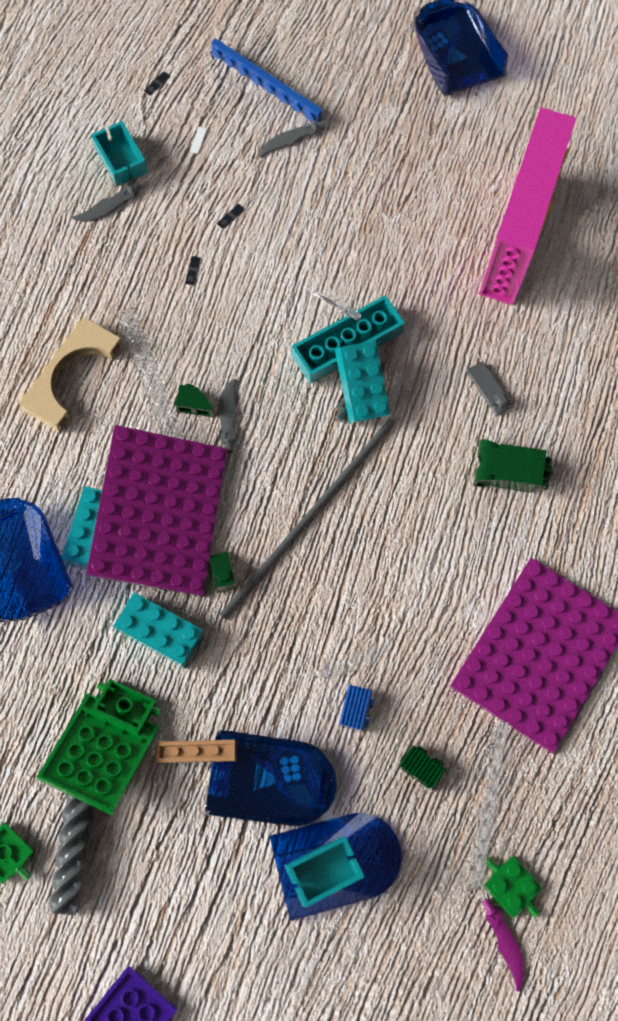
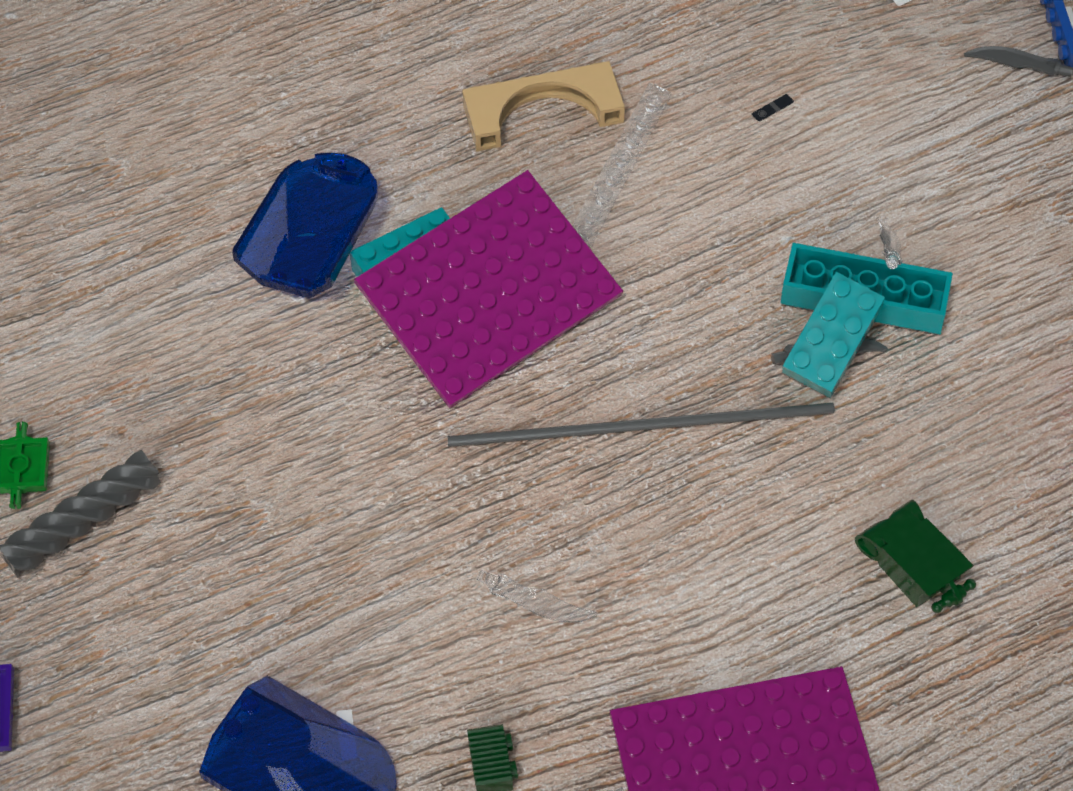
camera: 50 degrees right, 15 degrees down
(102, 746) = (205, 448): green plate -> none
(158, 630) = (372, 397): teal brick -> none
(193, 402) = (635, 221): dark green slope -> none
(196, 751) = (284, 534): medium nougat plate -> none
(222, 572) = (491, 401): dark green slope -> none
(227, 415) = (659, 264): dark grey sword -> none
(232, 214) = (868, 87): black sticker -> none
(271, 782) = (324, 625): clear blue windscreen -> none
(324, 871) = (274, 733): teal piece -> none
(355, 708) = (485, 640): blue brick -> none
(489, 388) = (982, 464): dark grey hinge -> none

